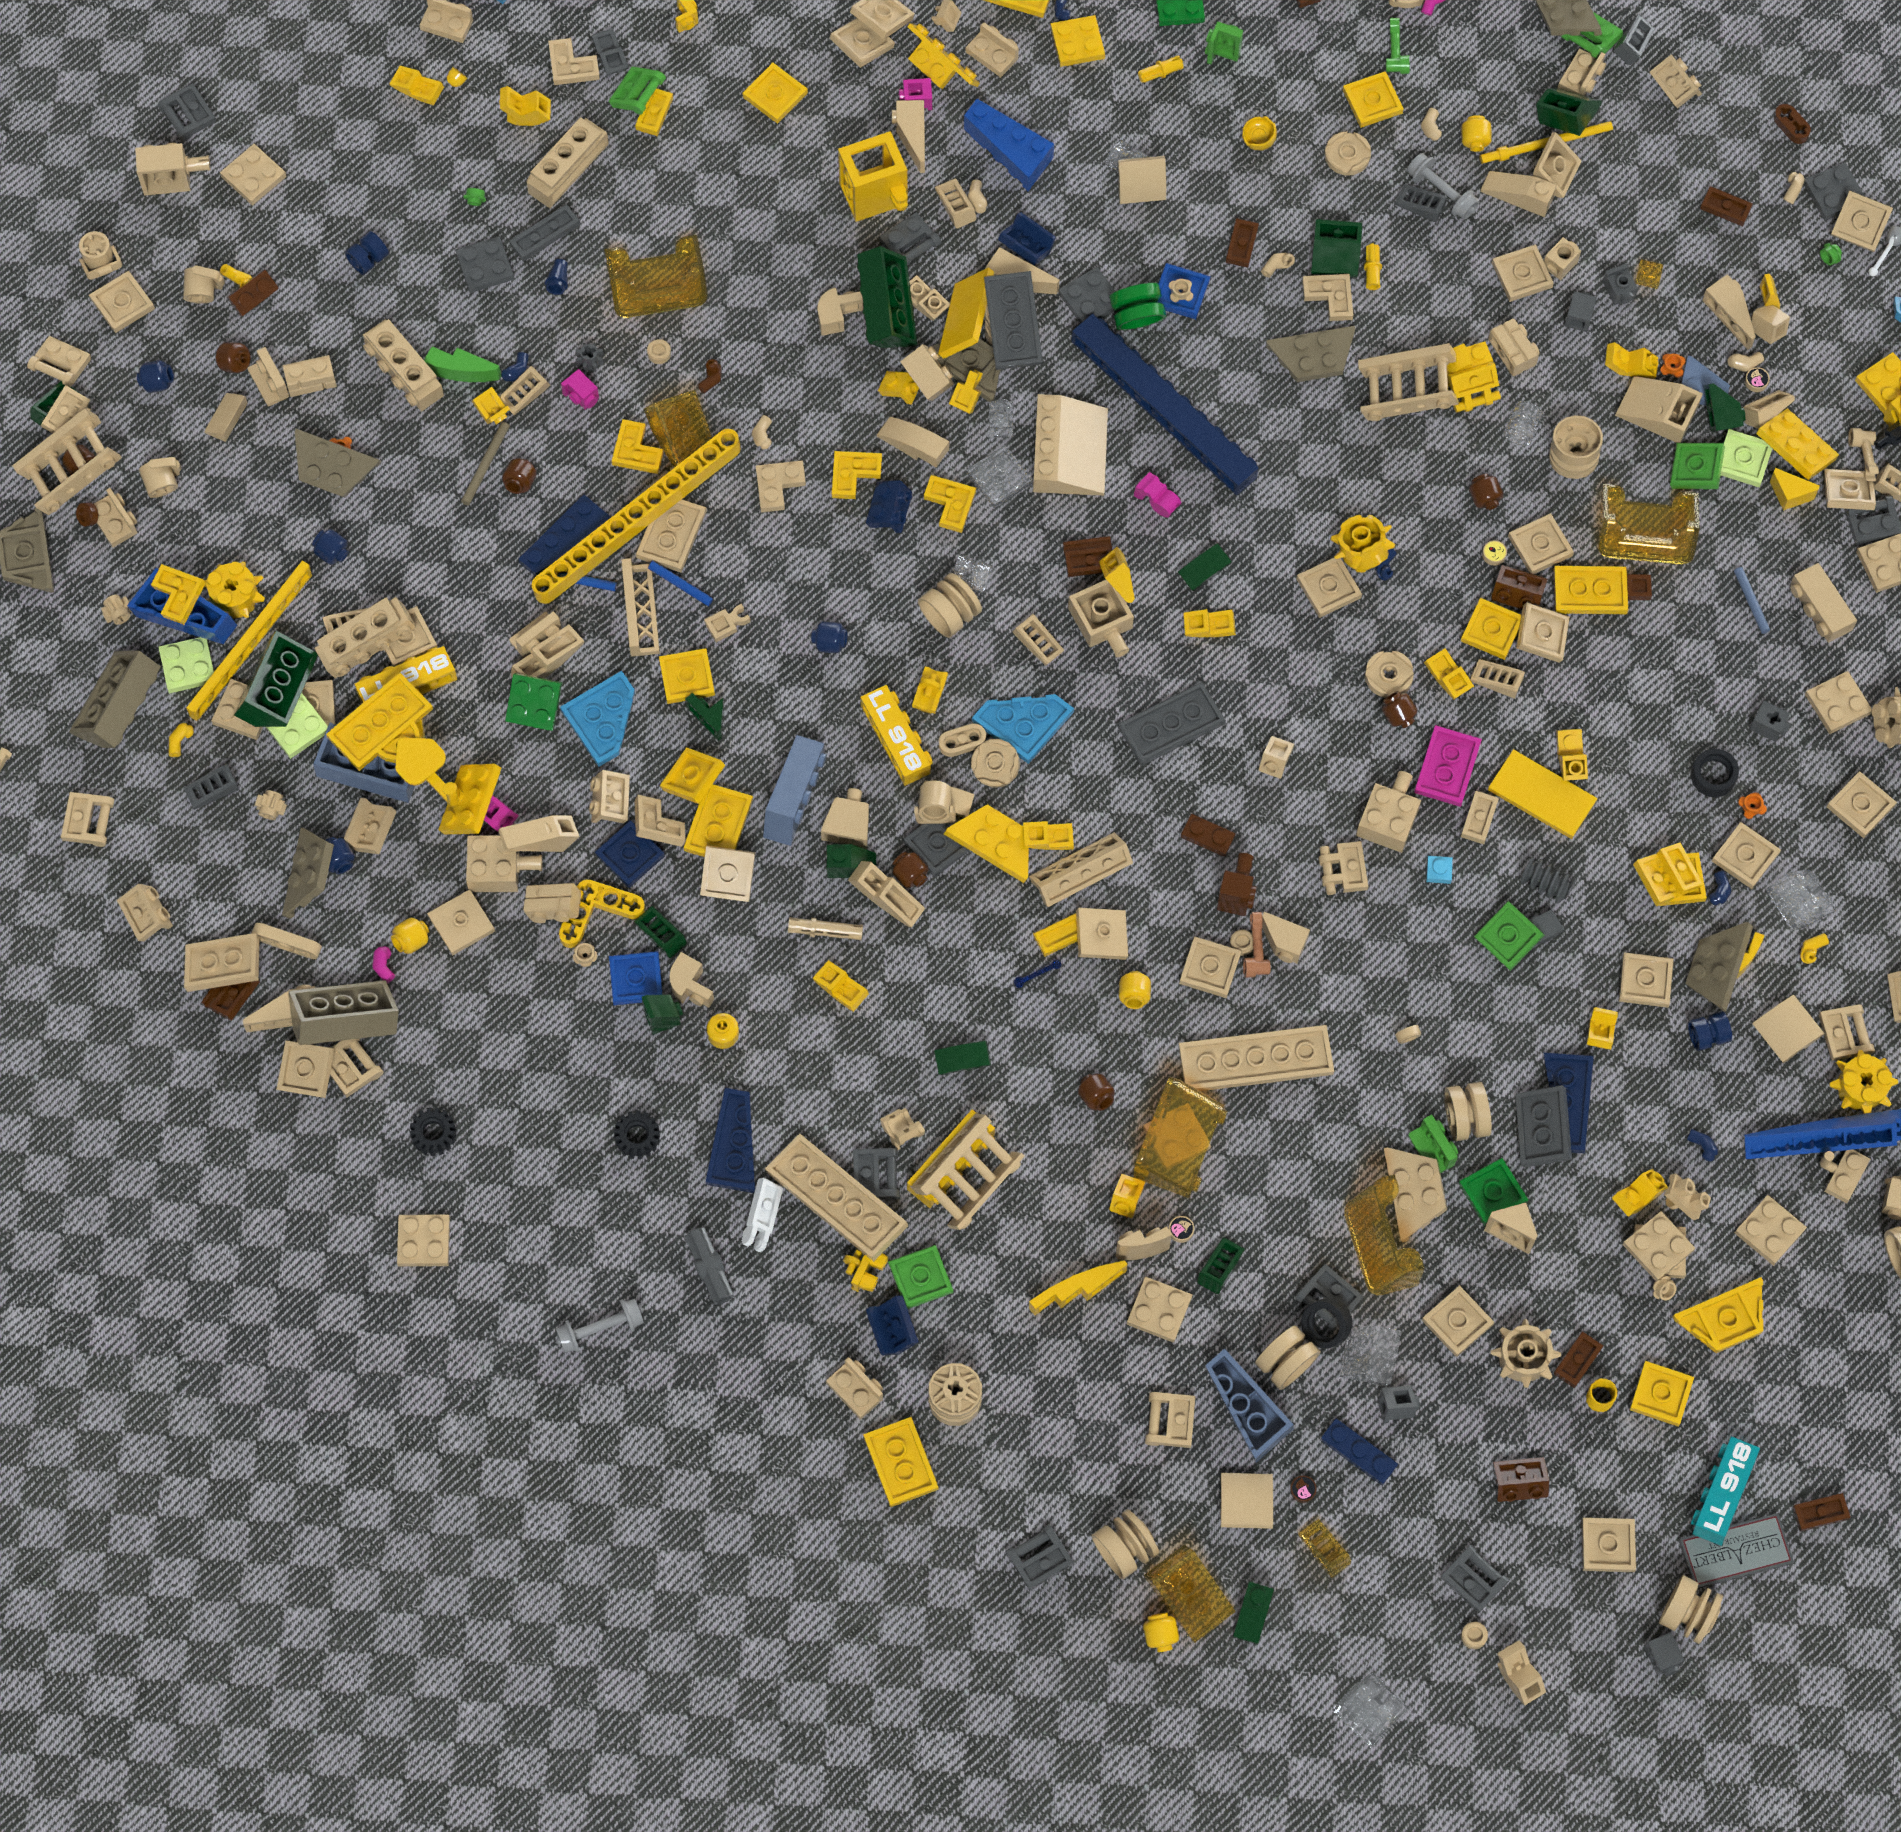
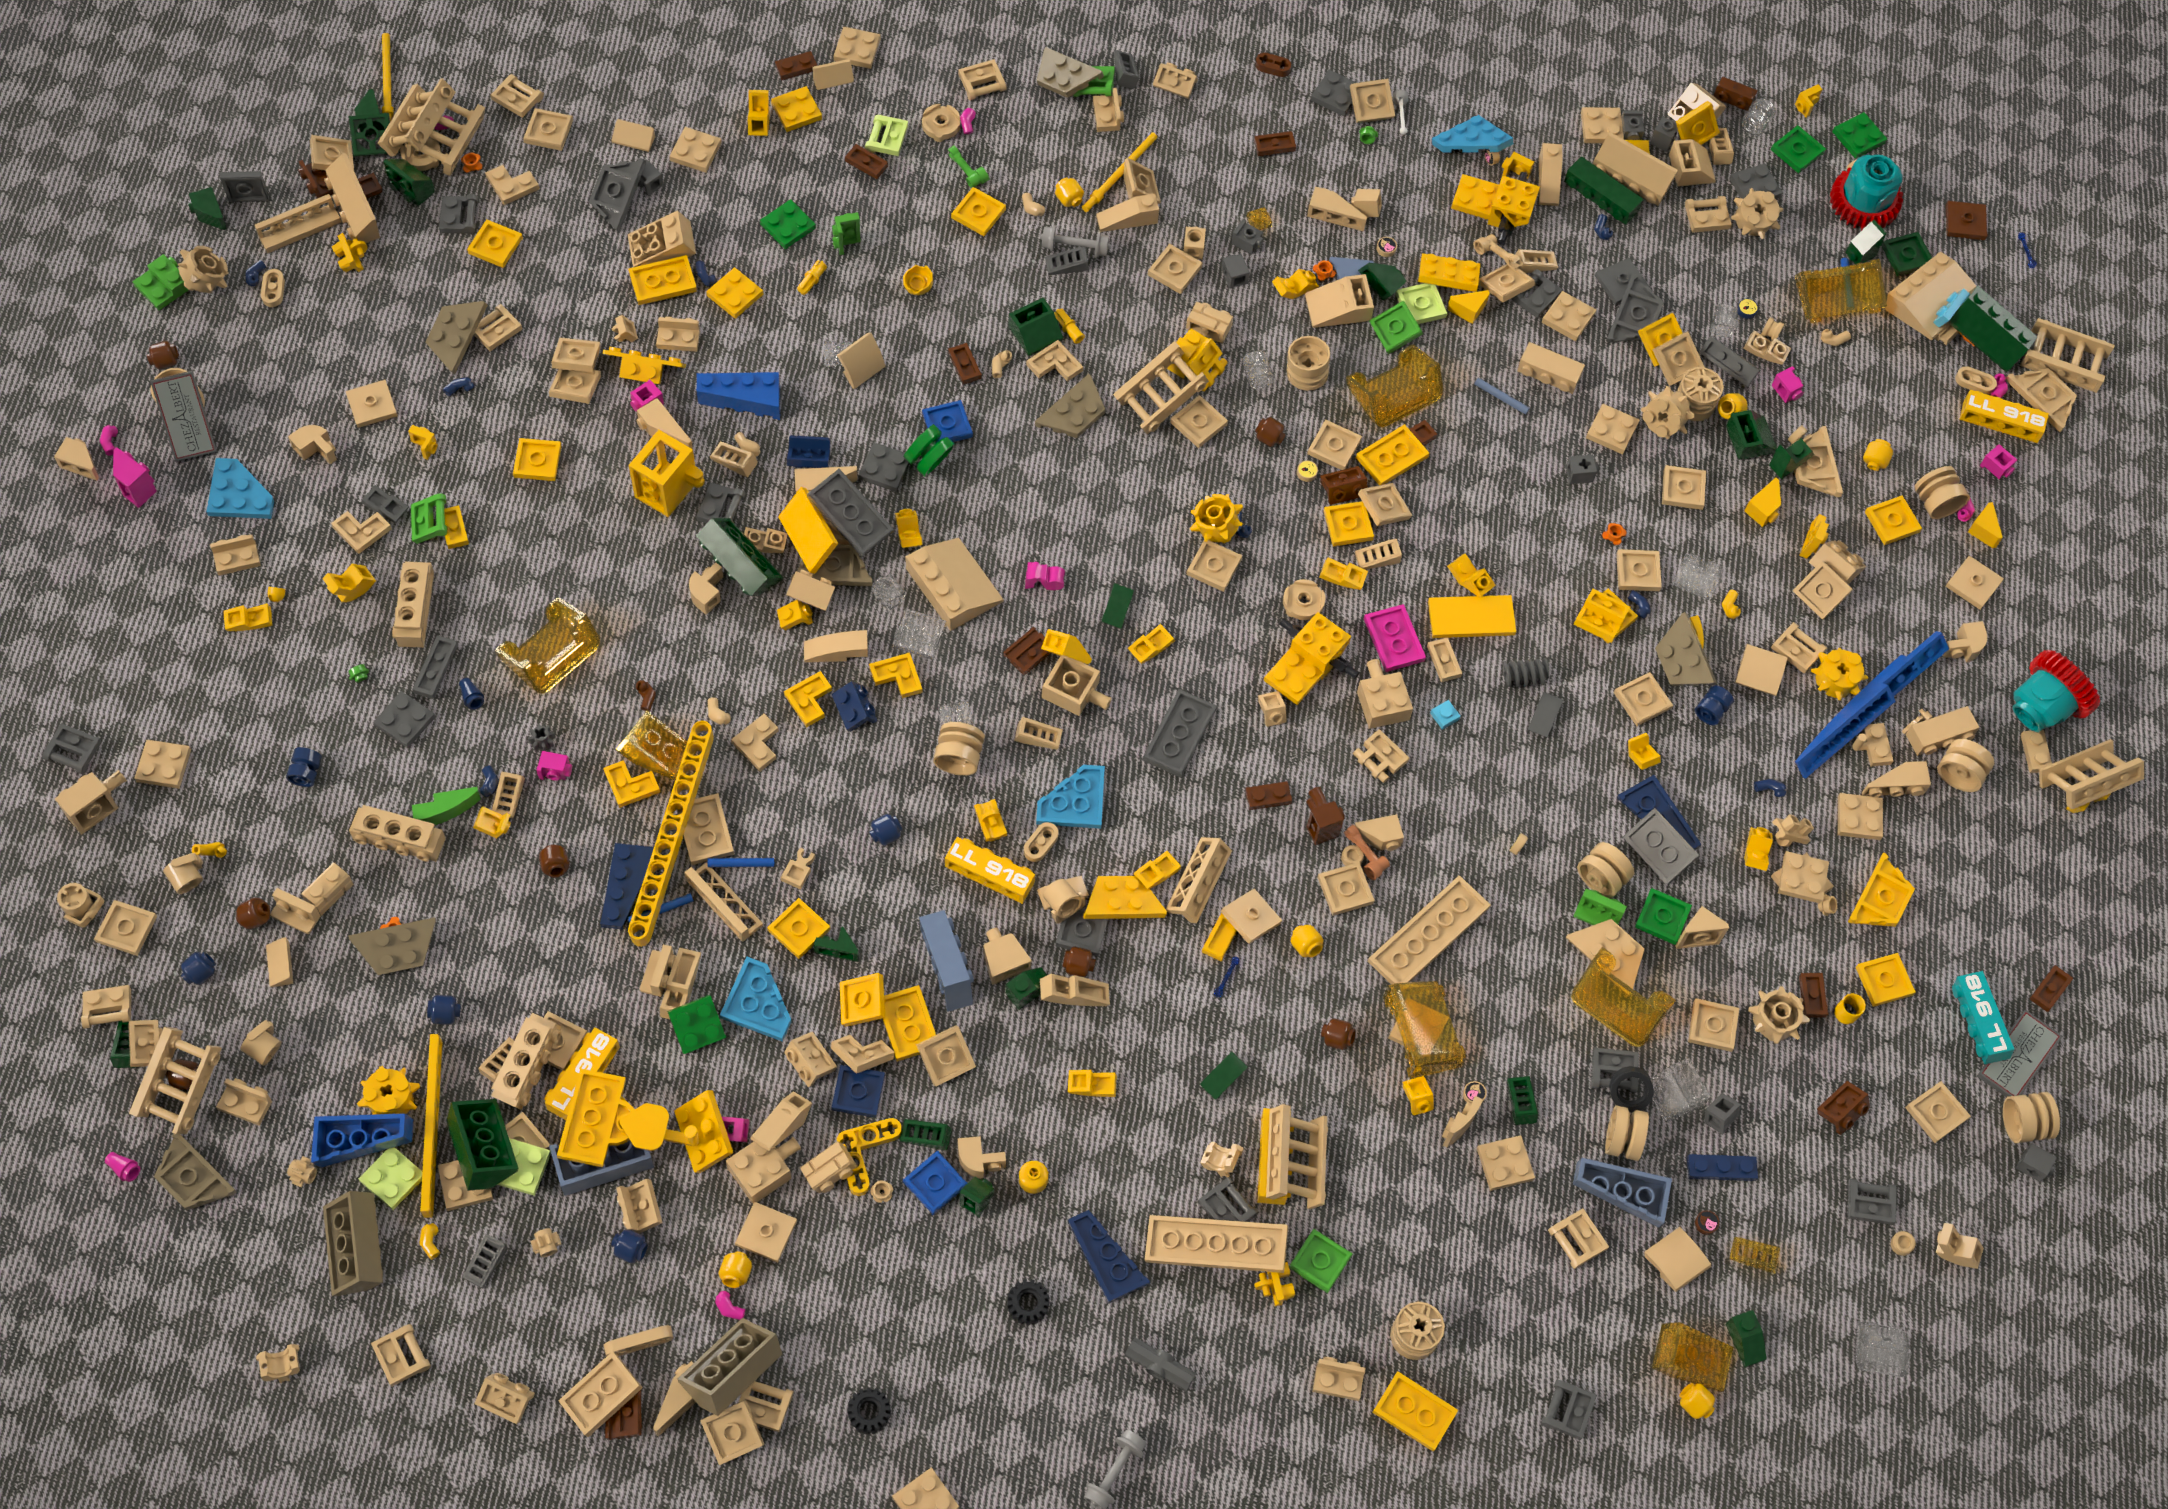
camera: 40 degrees left, 5 degrees down
(87, 514) = (220, 1112): reddish brown tile -> none
(183, 592) = (353, 1118): yellow plate -> none
(252, 292) = (231, 854): reddish brown plate -> none
(308, 871) = (616, 1273): dark tan wing -> none
(485, 463) = (518, 868): dark tan bar -> none
(659, 351) = (591, 701): tan tile -> none
(762, 1214) = (1169, 1296): white hinge -> none
(823, 928) = (1040, 1052): tan pin -> none
(892, 1326) = (1331, 1312): dark blue bracket -> none
(965, 394) = (850, 591): yellow plate -> none
(995, 763) = (1078, 842): tan tile -> none
(1066, 370) = (908, 528): none -> yellow slope
(1085, 1283) = (1441, 1182): yellow slope -> none
(1129, 1541) = (1625, 1353): tan wheel -> none
(1165, 404) = (998, 509): dark blue brick -> none
(1181, 284) = (949, 416): tan plate -> none
(1347, 153) = (989, 259): tan tile -> none
(1352, 732) = (1310, 657): none -> yellow piece
(1399, 709) = (1335, 615): reddish brown head -> none
(1425, 438) = (1199, 421): none -> tan plate
(1509, 935) = (1531, 728): bright green tile -> none
(1566, 110) = (1119, 141): dark green slope -> none
(1719, 756) = (1576, 514): black tyre -> none
(1744, 362) = (1370, 240): tan arm -> none
(1766, 408) = (1410, 262): tan slope -> none
(1769, 291) = (1353, 182): yellow slope -> none
(1796, 181) = (1310, 105): tan arm -> none
(1841, 1223) = (1905, 779): none -> tan slope

